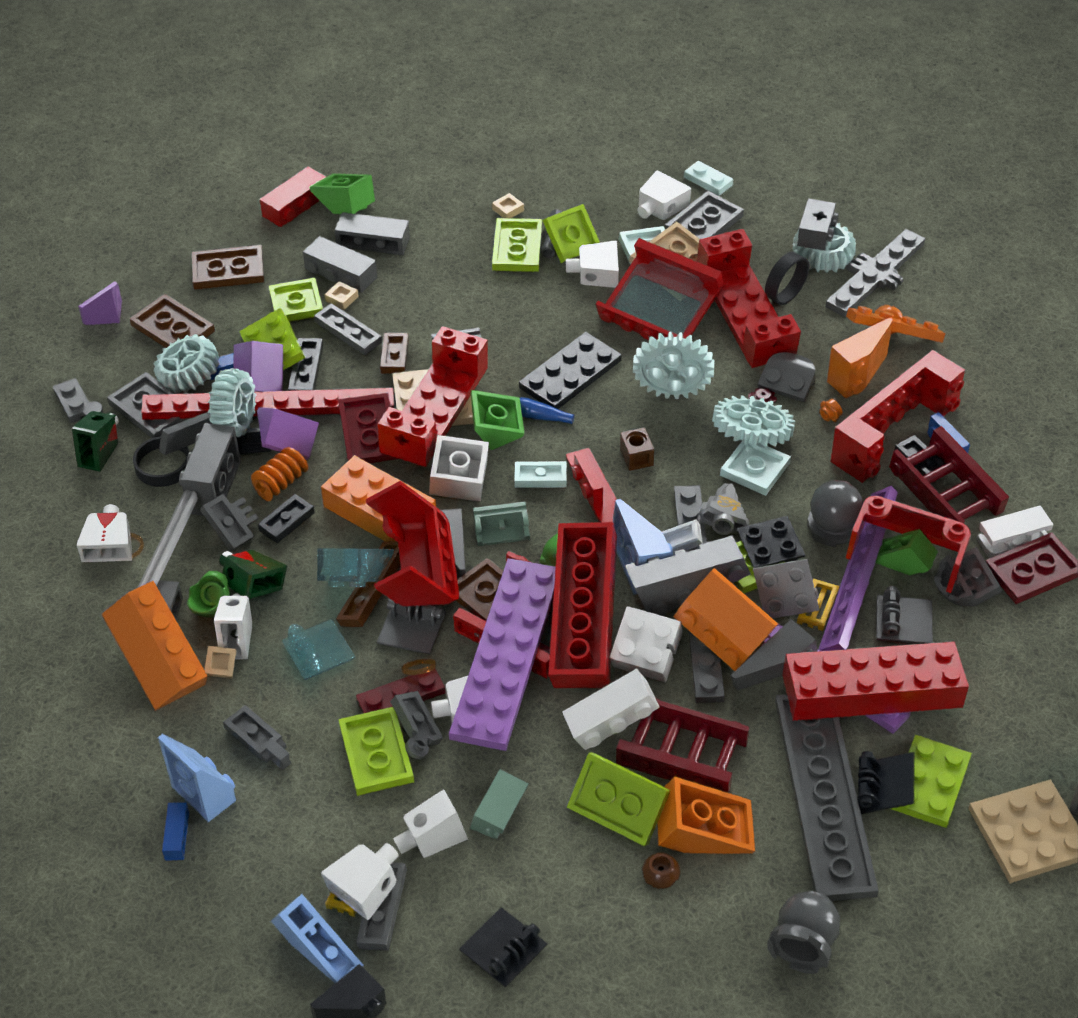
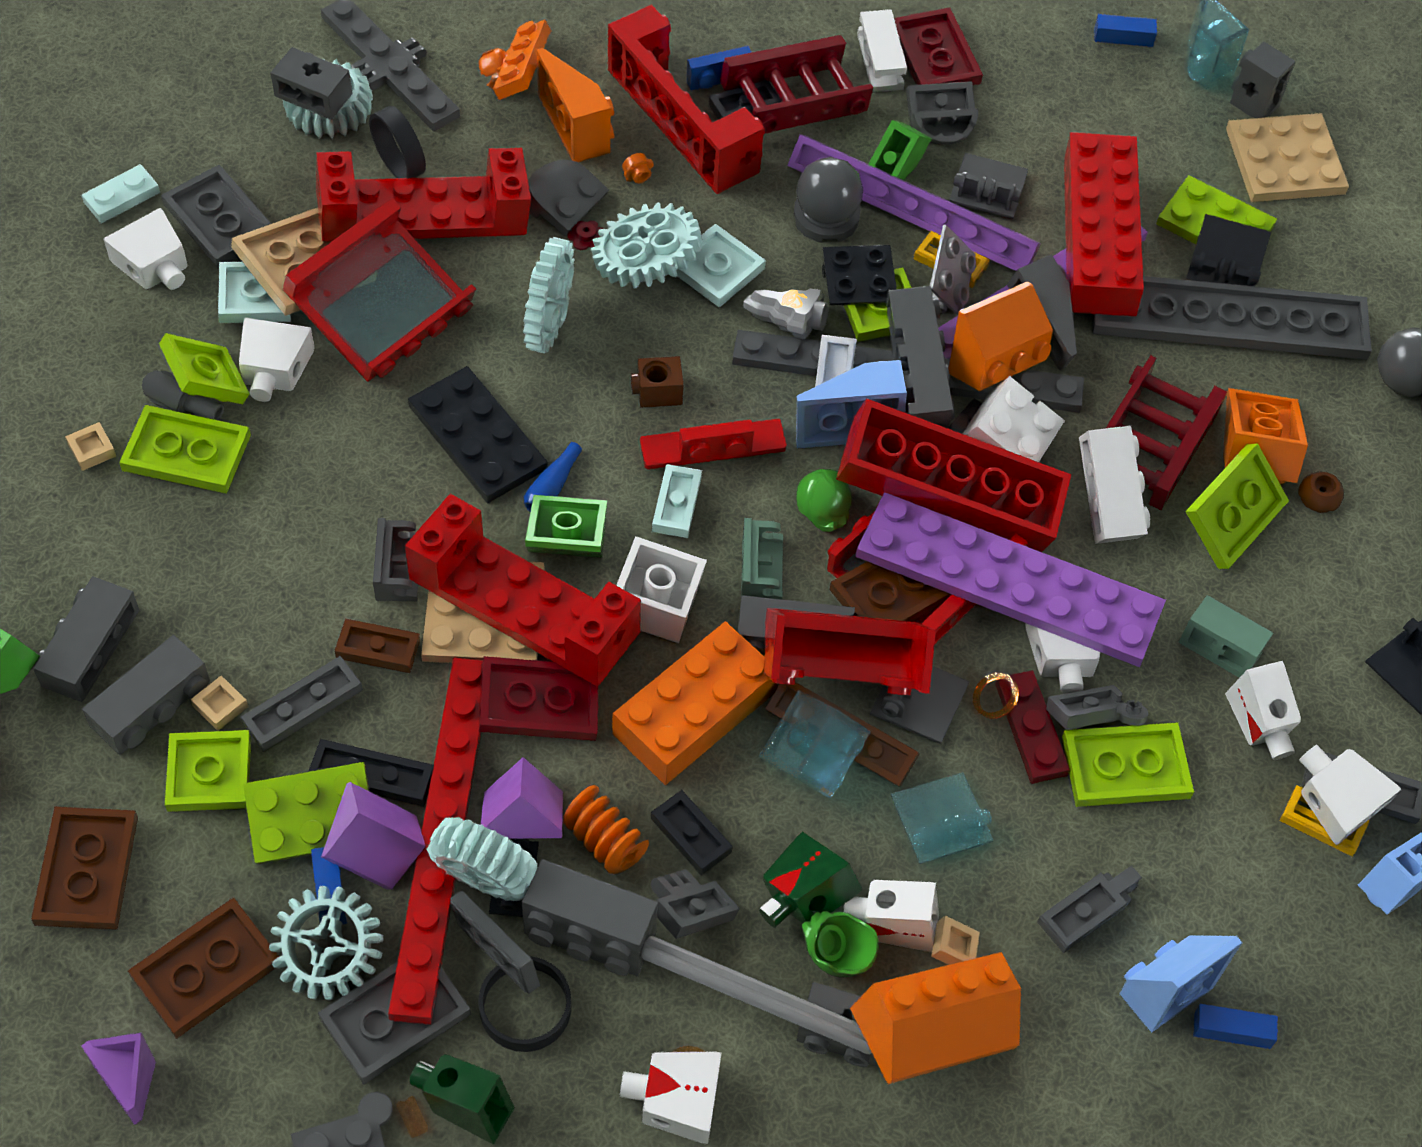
camera: 85 degrees left, 10 degrees up
(905, 519) = (871, 141): red windscreen -> none

